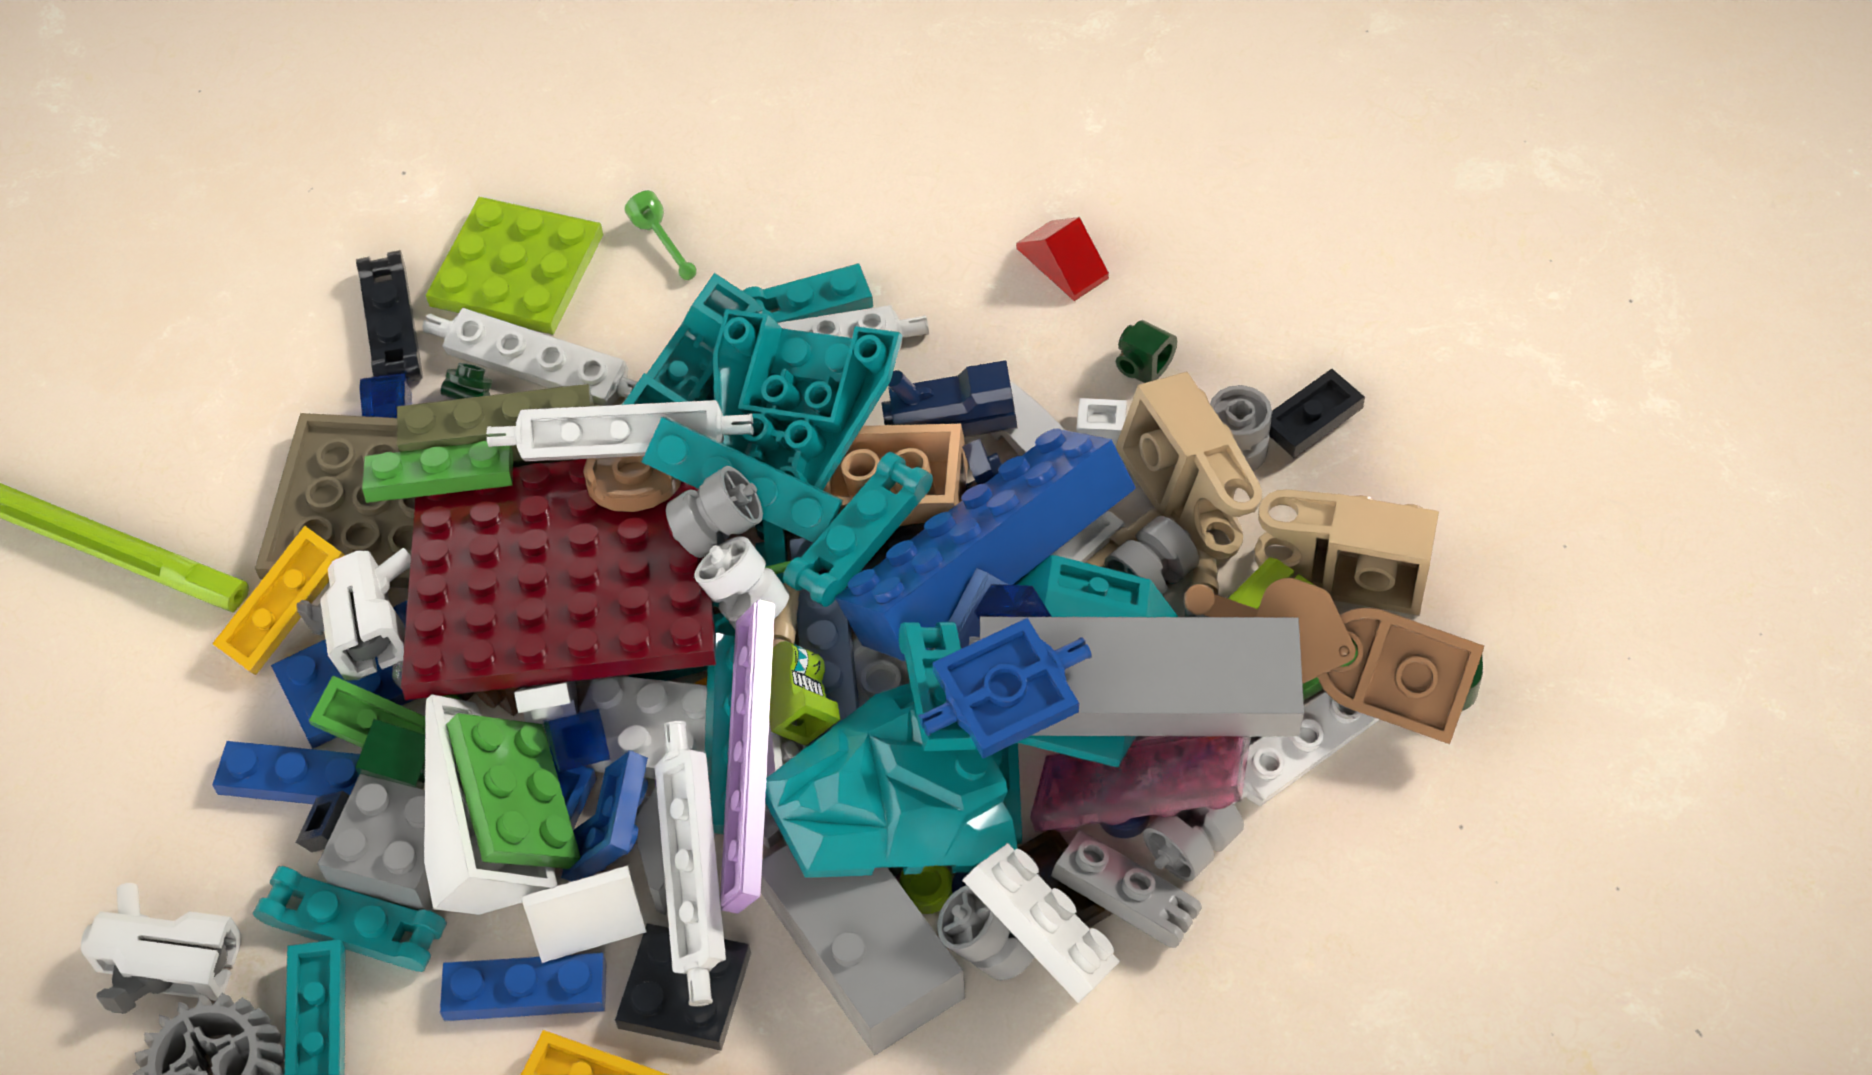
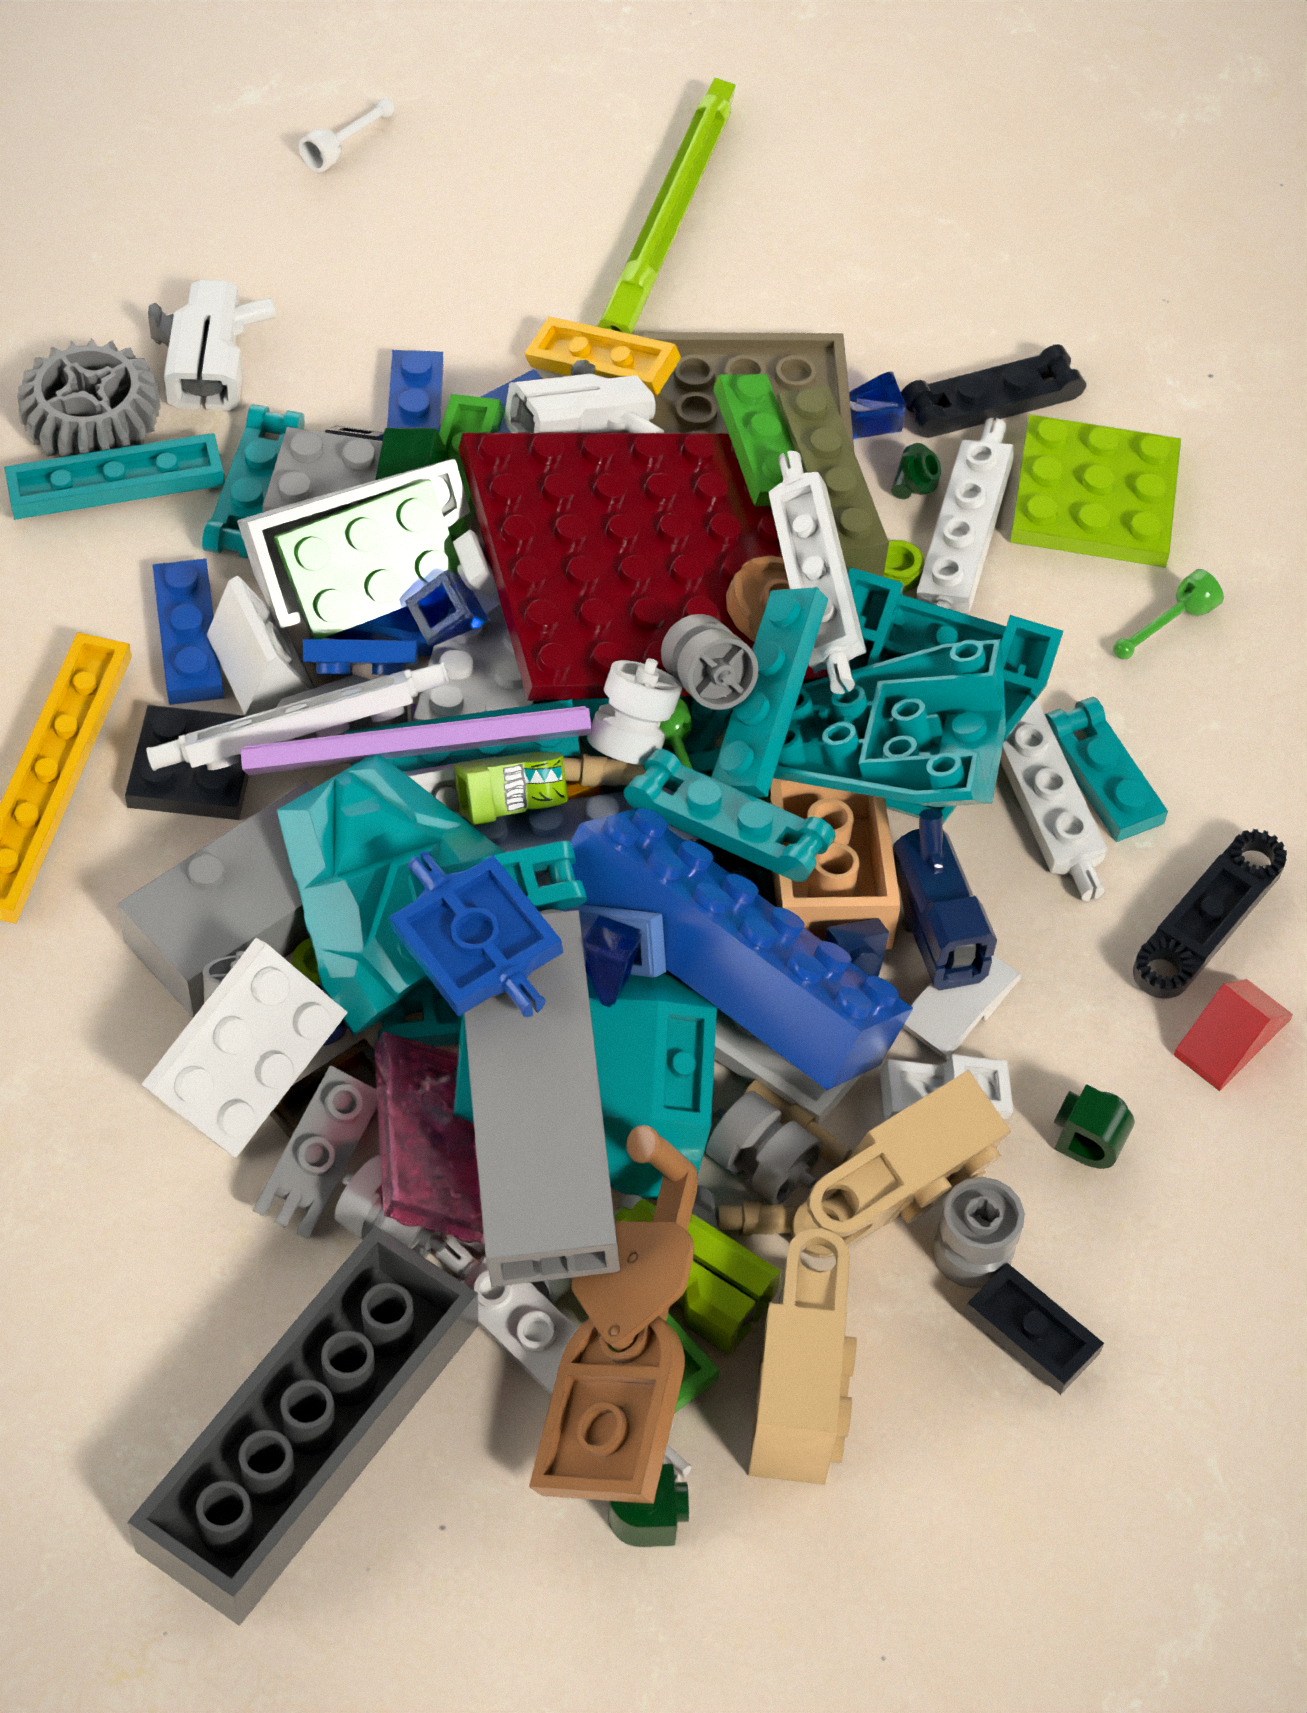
camera: 75 degrees right, 0 degrees up
(959, 252) = (1209, 914): none -> black plate
(1391, 901) = (304, 1425): none -> dark grey brick

